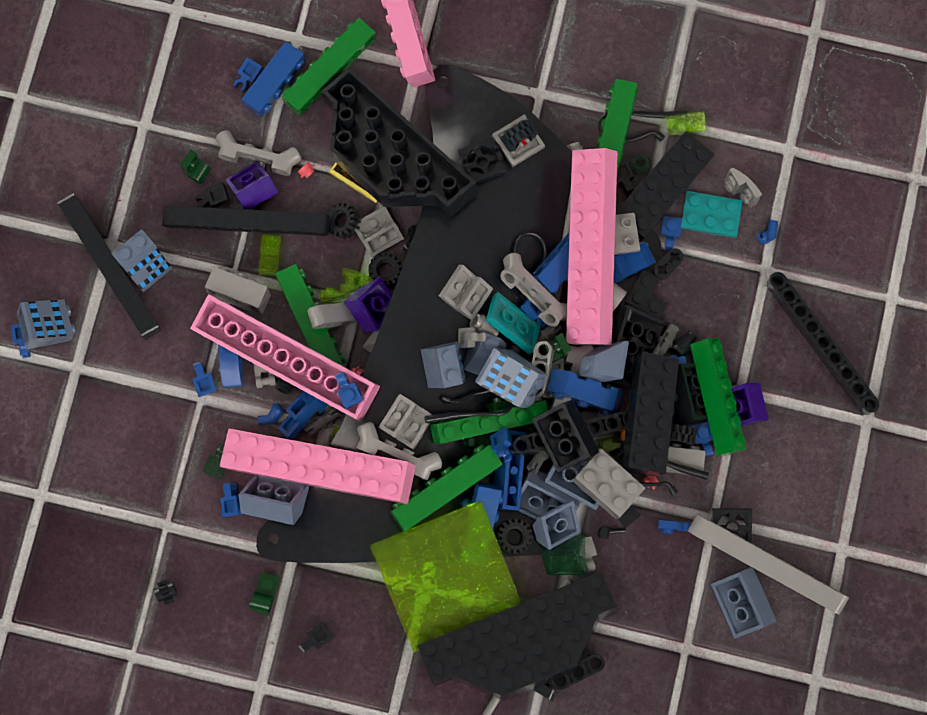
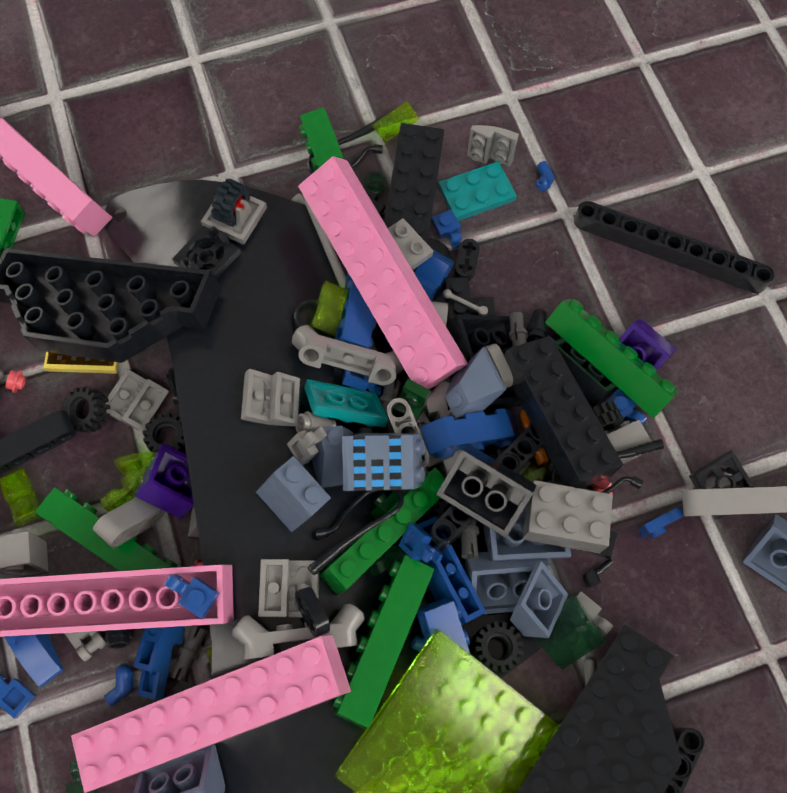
camera: 30 degrees left, 10 degrees down
(411, 445) = (312, 611): none -> black beam
(544, 248) = (330, 308): none -> clear neon green slope
(631, 358) = (500, 364): none -> light grey beam
(651, 310) = (483, 310): none -> light grey hinge

